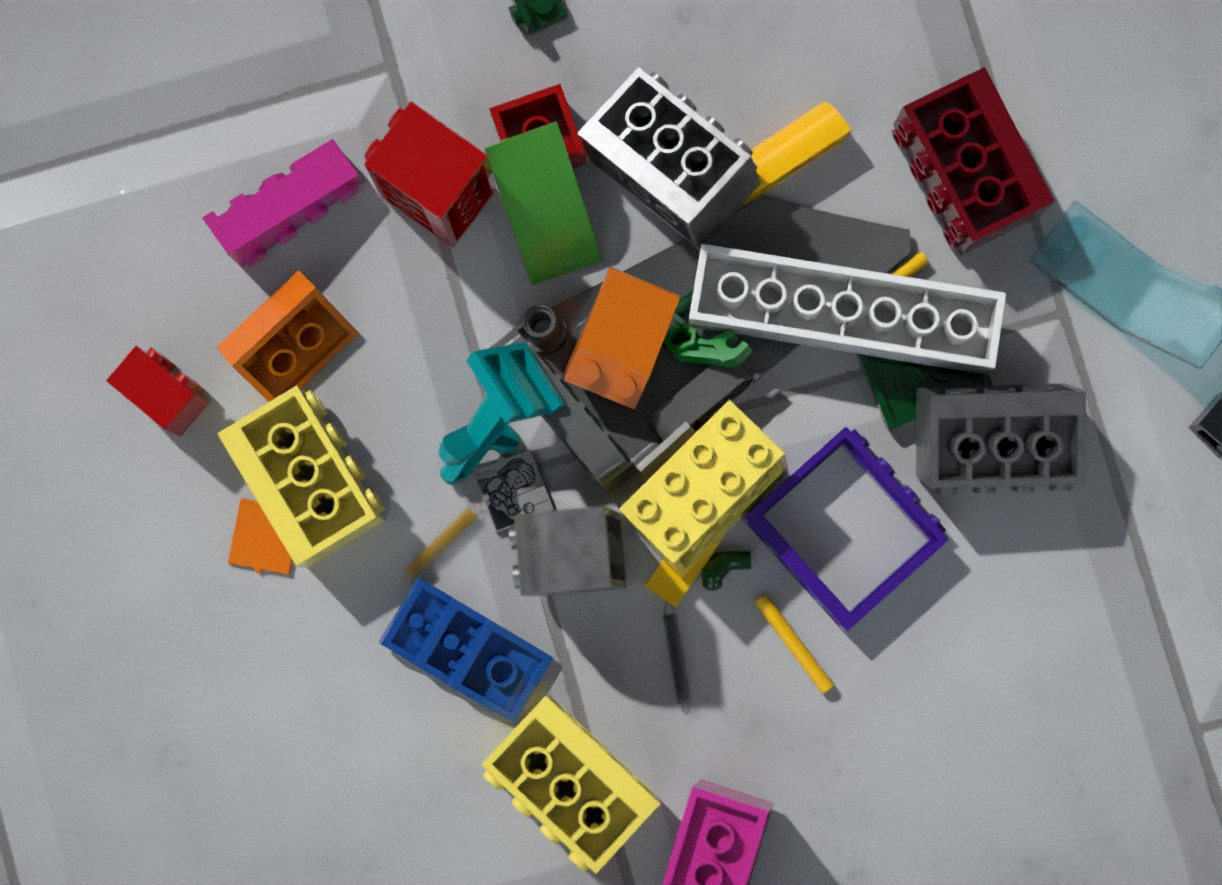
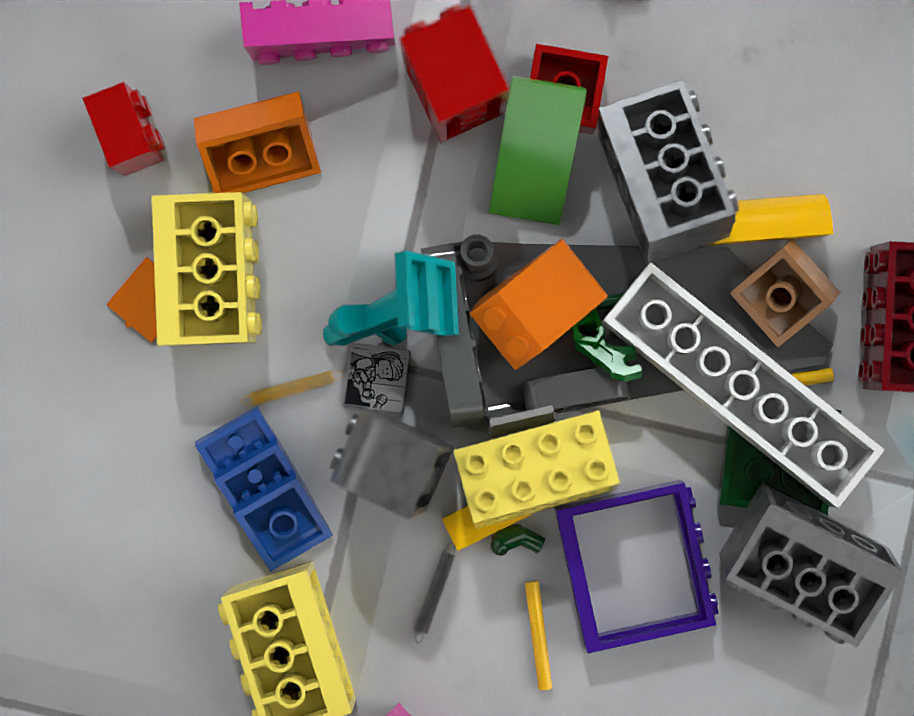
camera: 30 degrees right, 5 degrees up
(839, 206) = (785, 293): none -> medium nougat slope

